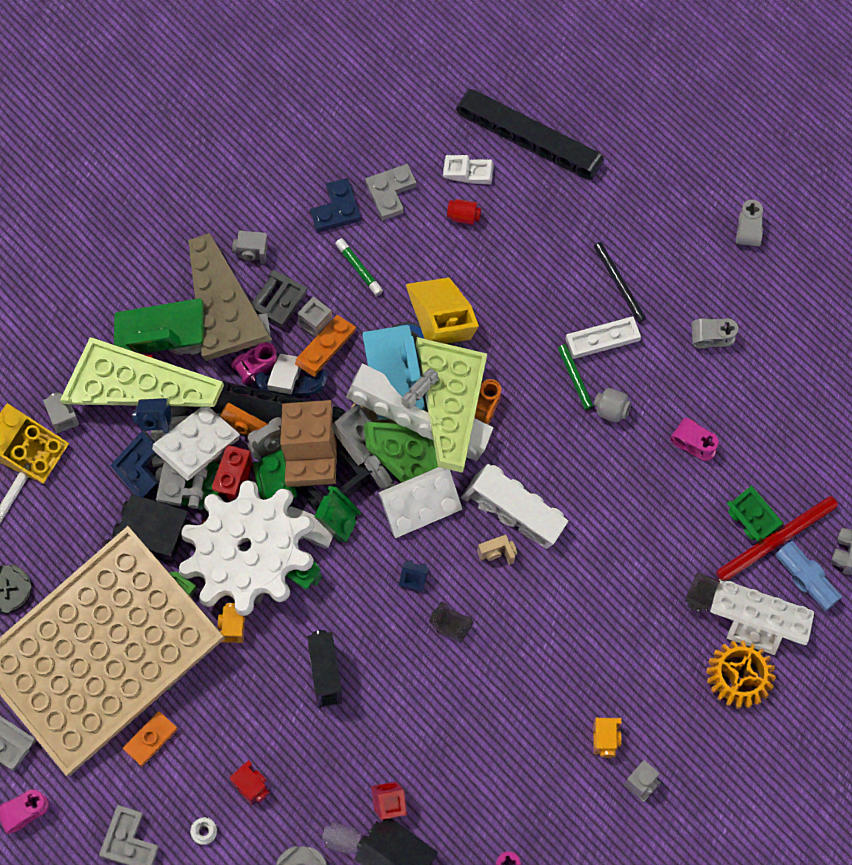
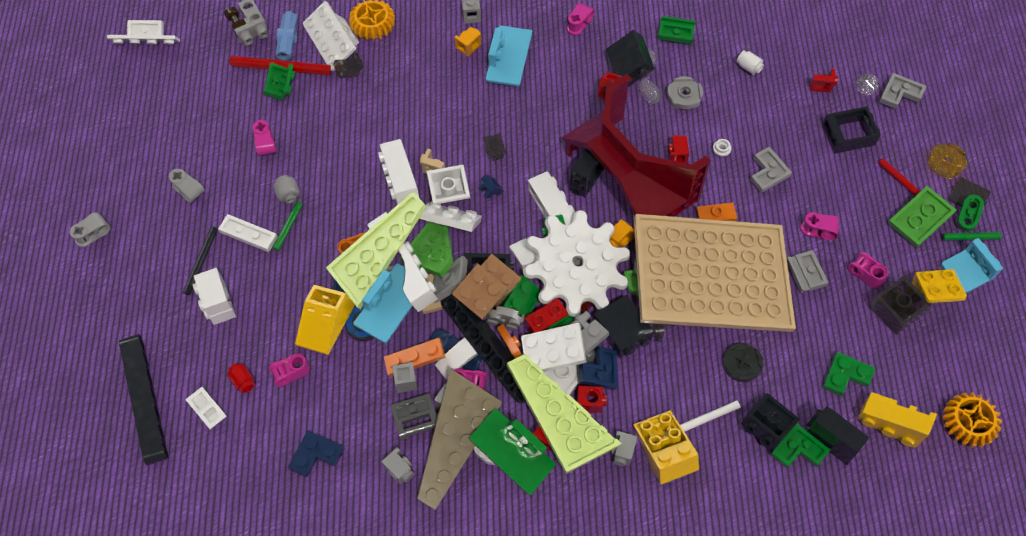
camera: 135 degrees left, 5 degrees down
(120, 426) = (590, 391): none -> red brick
(153, 414) = (569, 380): dark blue brick -> none
(332, 606) = (549, 198): none -> white brick
(337, 514) = (506, 242): green plate -> none
(350, 691) = (647, 181): none -> dark red panel
(359, 267) = (342, 398): green bar -> none
(378, 472) = (458, 248): light grey axle -> none
(385, 187) = (270, 441): light grey plate -> none
(419, 388) = (390, 261): light grey axle -> none
(430, 248) = (288, 370): none -> dark pink piece
(451, 530) = (448, 184): none -> white slope
(546, 758) = (508, 55): none -> medium azure bracket
(557, 241) = (213, 296): none -> white piece

